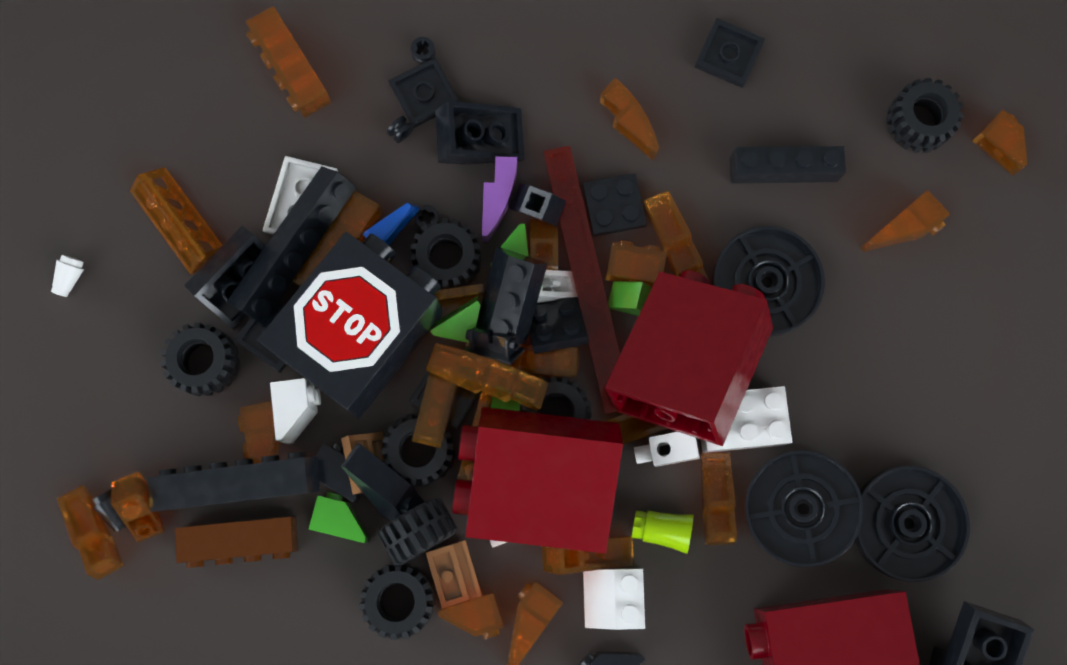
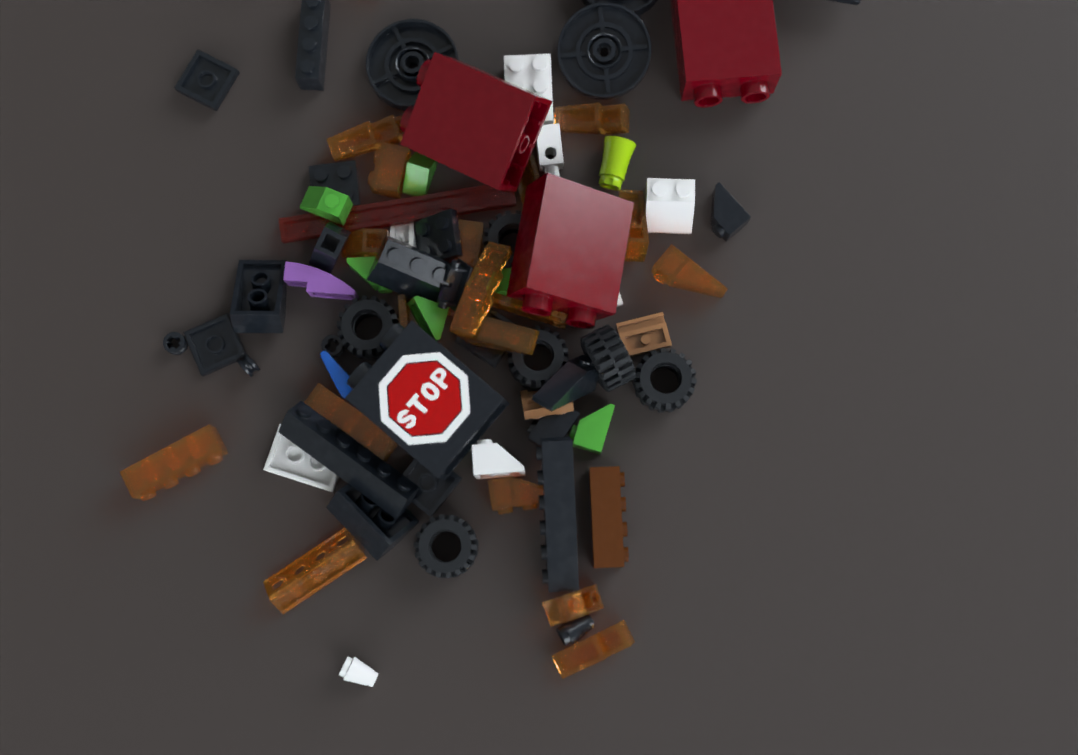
camera: 80 degrees left, 0 degrees up
(475, 616) = (679, 315): clear orange slope -> none
(586, 196) = (327, 204): none -> bright green slope
(630, 118) = (259, 165): clear orange slope -> none

